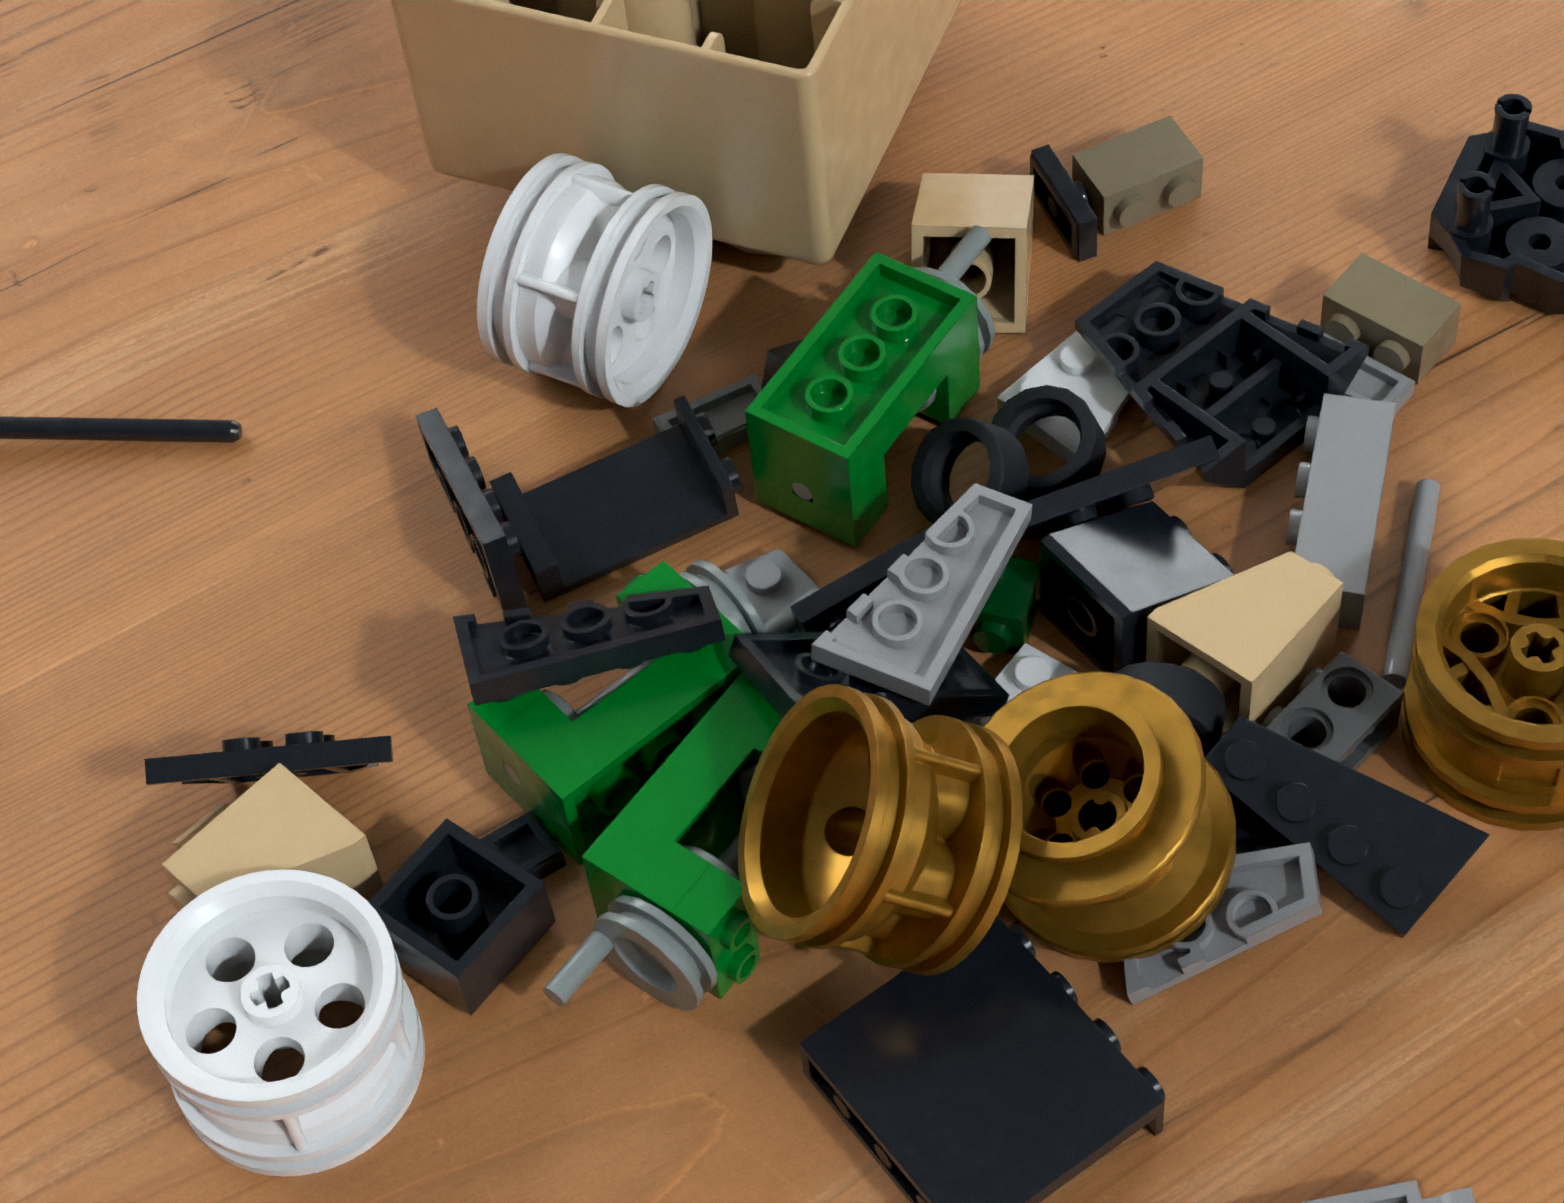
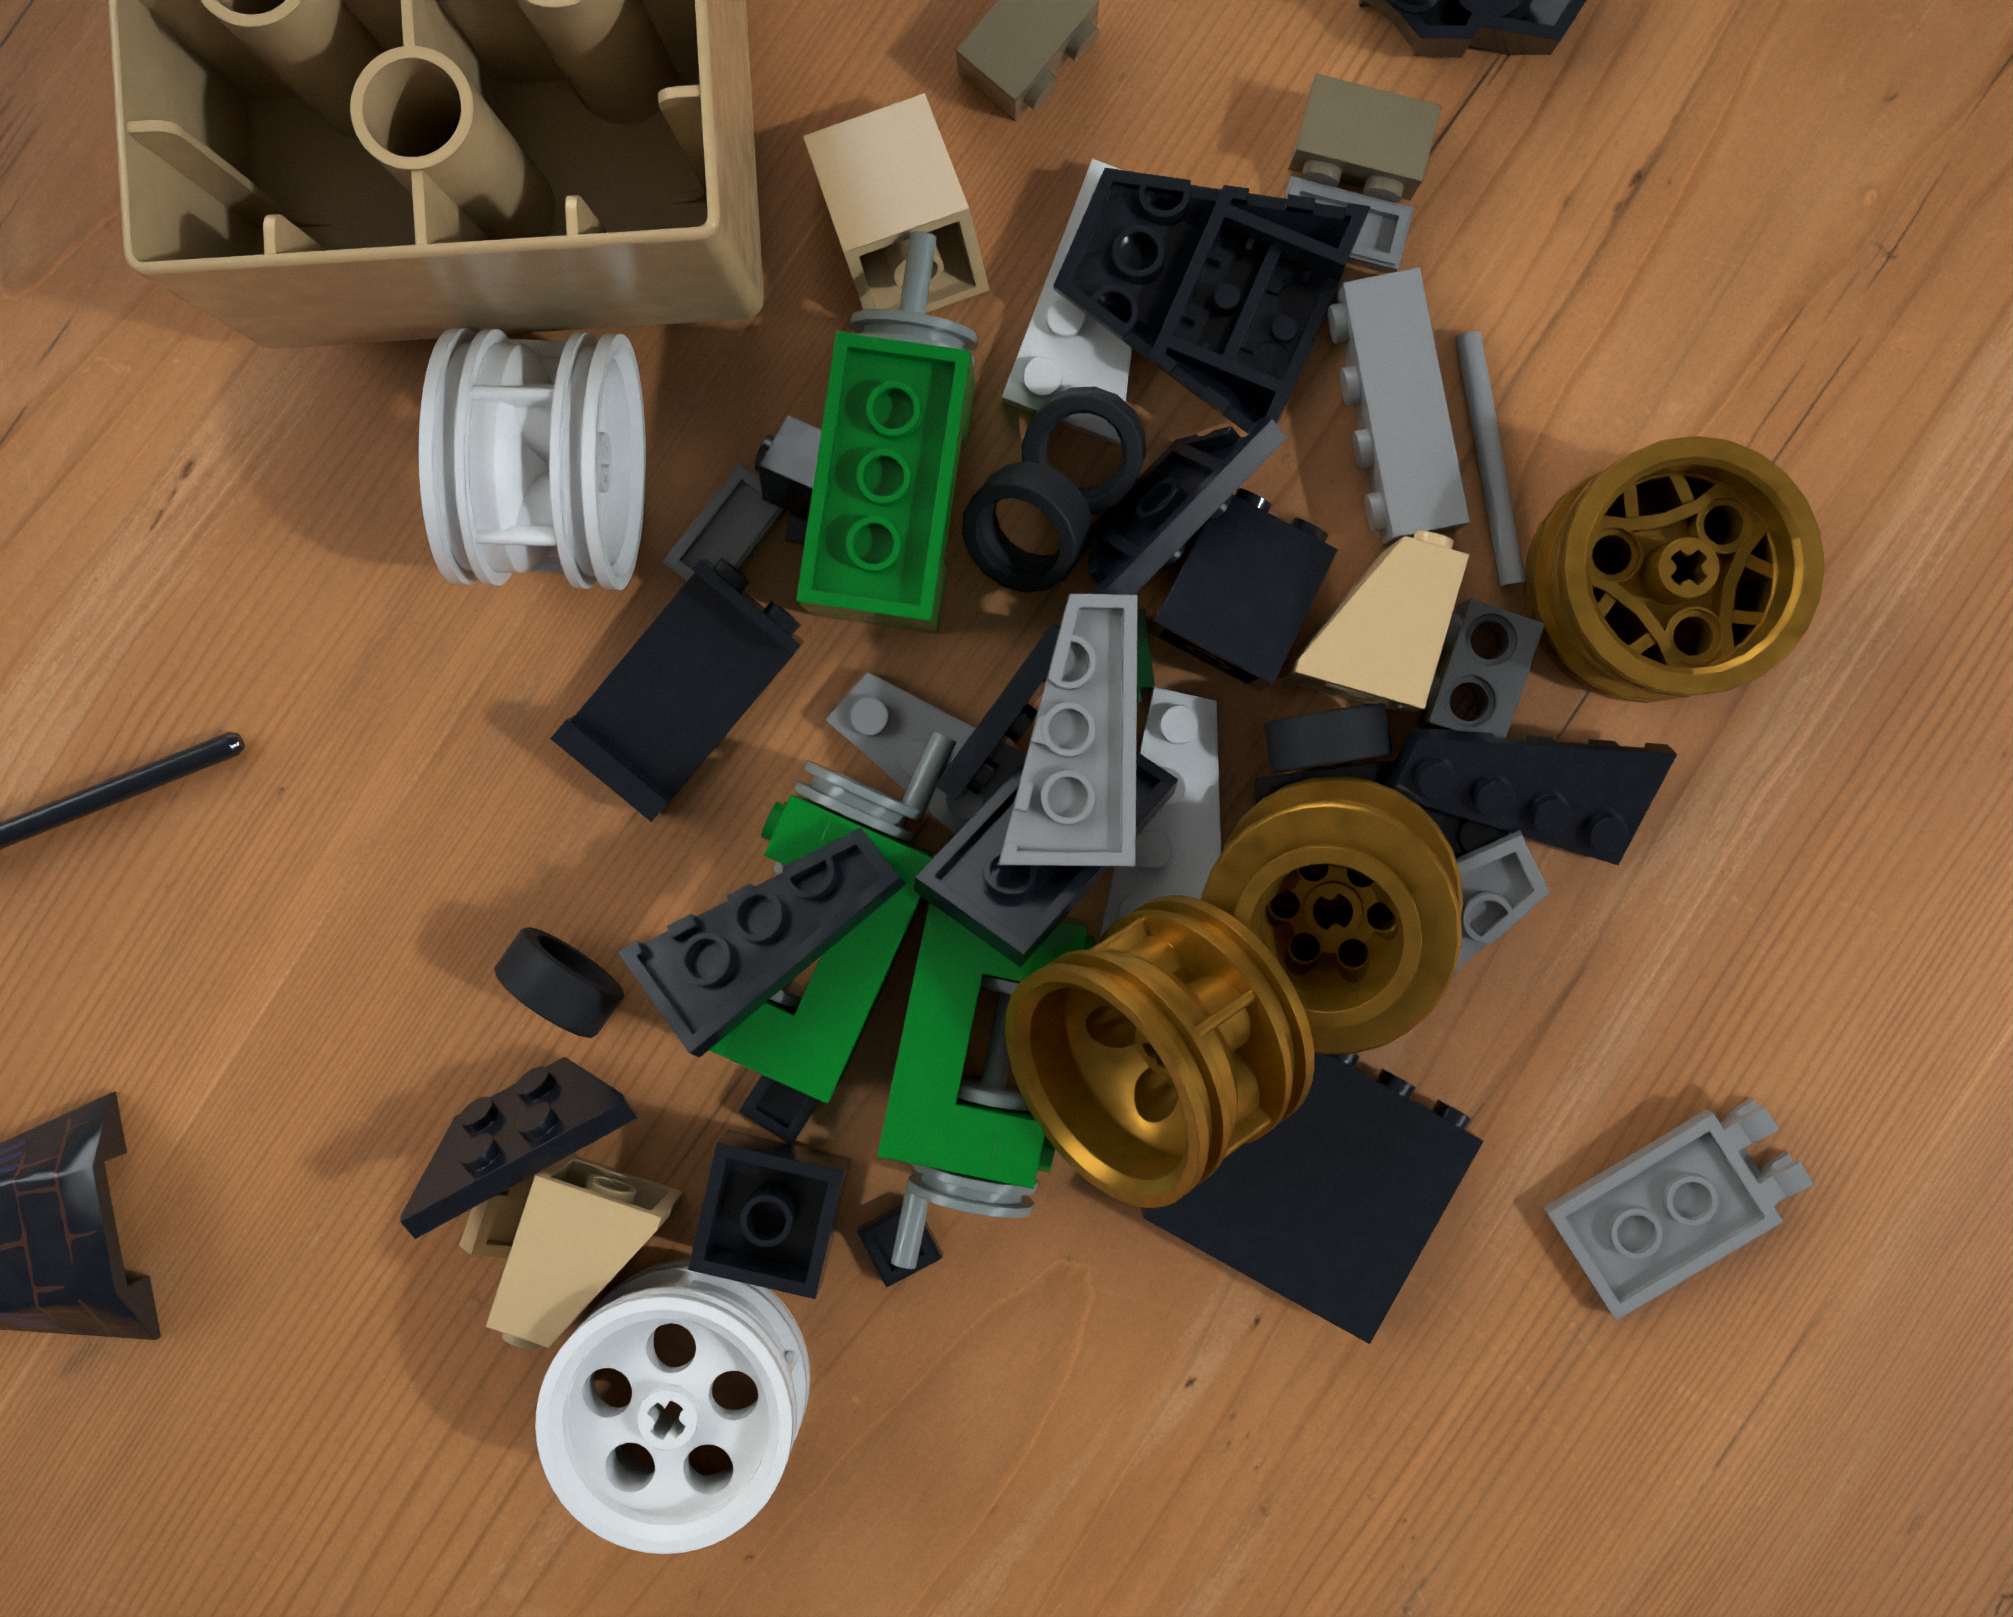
camera: 30 degrees left, 35 degrees up
(387, 664) = (558, 982): none -> black tyre
(476, 509) = (547, 767): black wing -> none
(557, 1025) = (879, 1242): none -> black tile
(1064, 203) = (965, 105): black plate -> none

